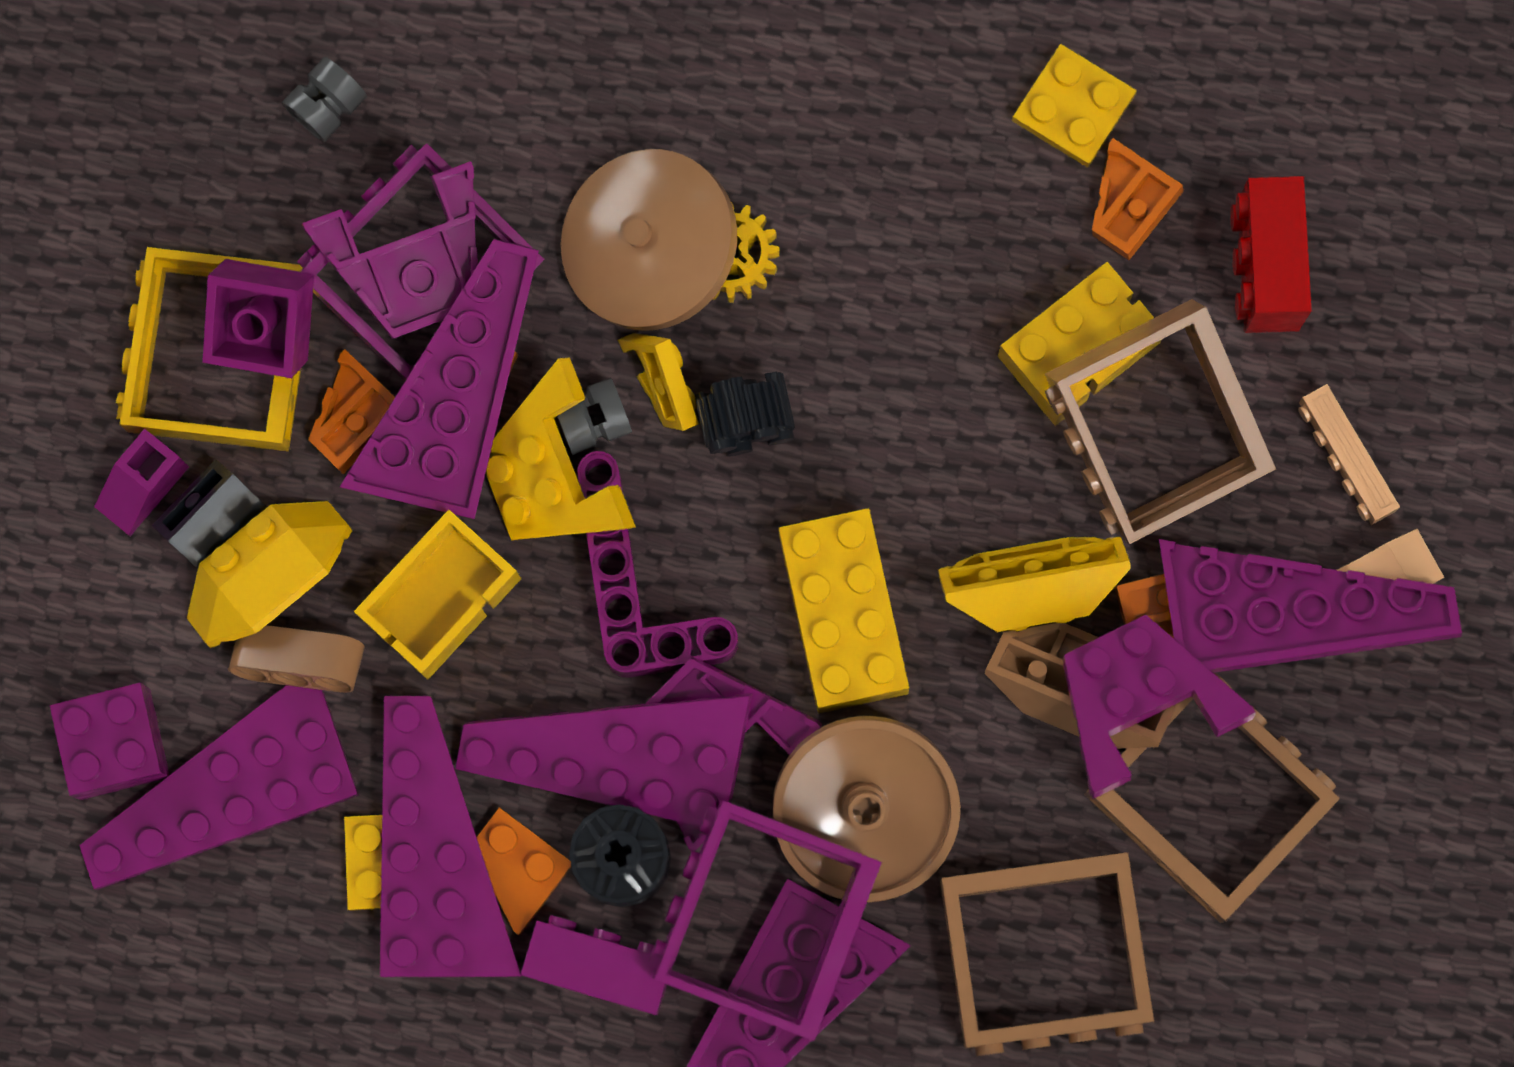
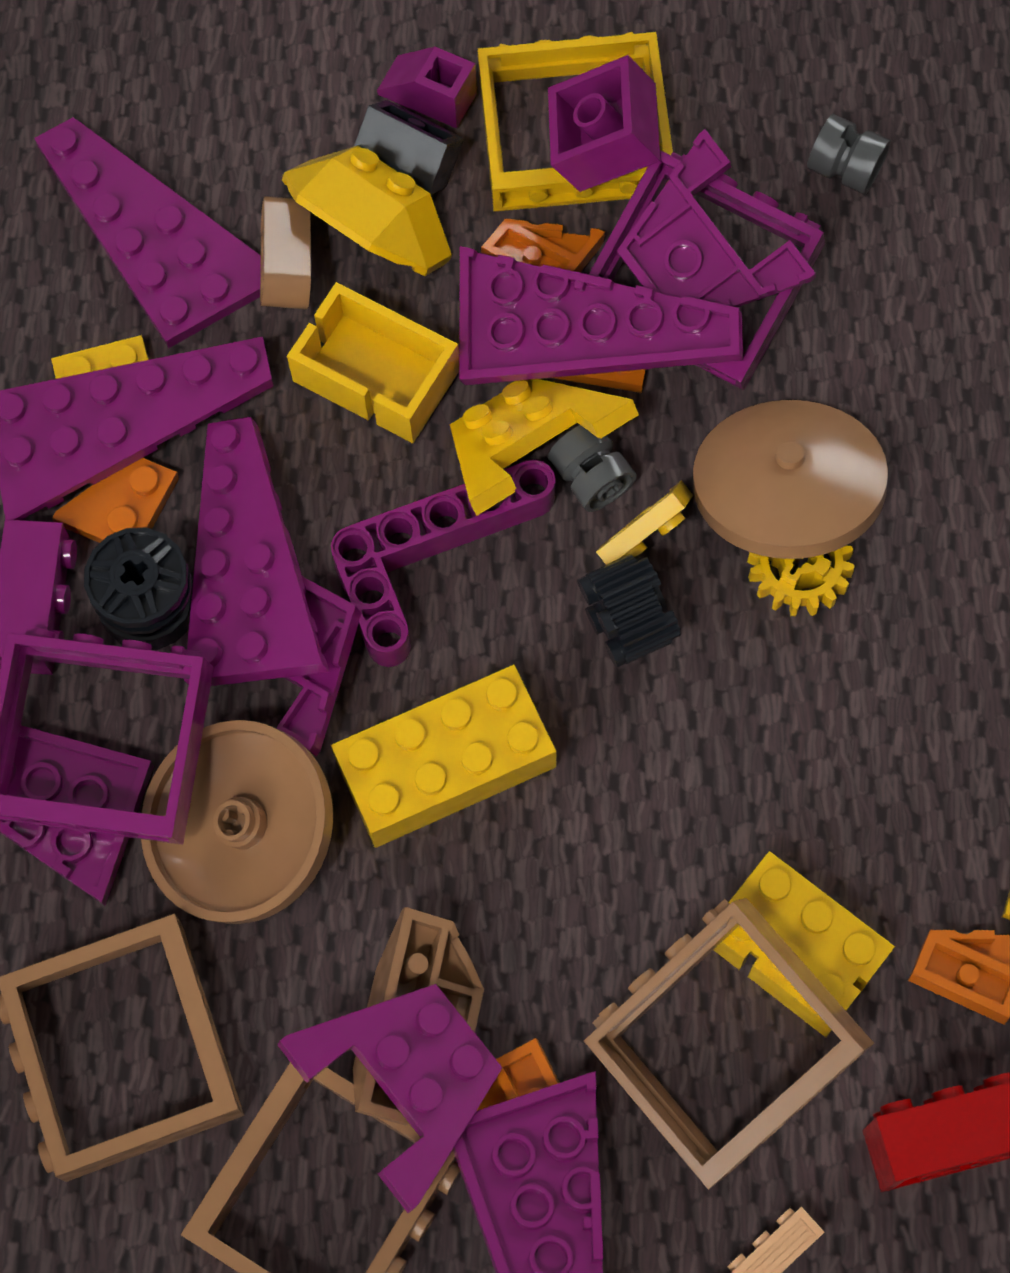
camera: 75 degrees right, 10 degrees down
(109, 741) = (174, 115): magenta brick -> none
(1036, 581) = (516, 941): yellow wedge -> none

